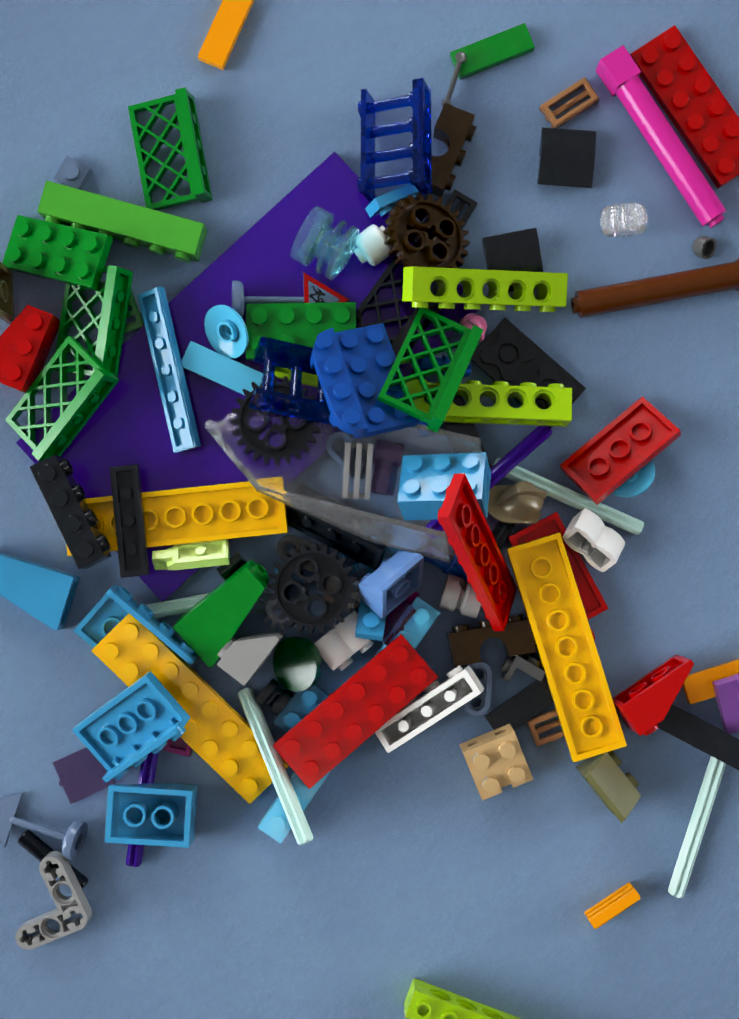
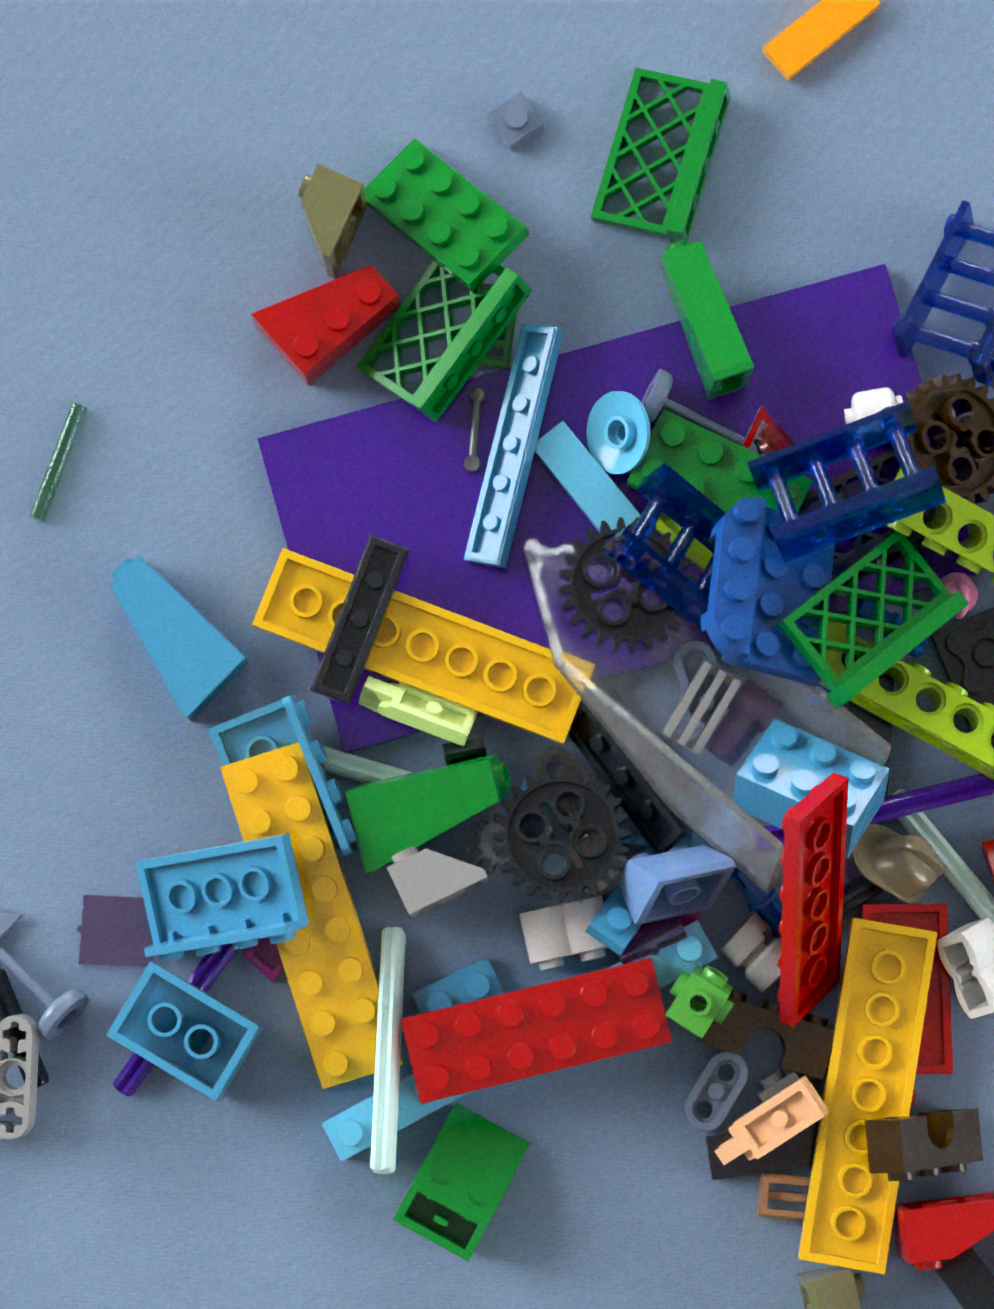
camera: 30 degrees right, 5 degrees down
(71, 512) = (290, 568): black brick -> none
(74, 413) = (352, 444): green fence -> none
(123, 221) = (553, 218): bright green brick -> none
(149, 393) = (472, 462): none -> dark grey hinge
(244, 237) = (706, 319): none -> green slope
(269, 694) = (429, 950): black wheel -> none
(297, 663) = (486, 929): dark green tile -> none
(321, 241) = (810, 380): clear light blue wheel -> none
(323, 290) = (774, 437): none -> clear red plate
(356, 817) = (461, 1181): none -> green slope
(386, 202) = (922, 368): dark azure plate -> none
(391, 308) = (861, 512): none -> clear blue fence
(431, 707) = (639, 1080): white brick -> none
(442, 644) = (693, 1012): none -> bright green brick
(496, 761) = (691, 1204): tan piece -> none
(520, 691) = (773, 1122): none -> light nougat hinge
(612, 663) = (924, 1143): none -> dark brown arch

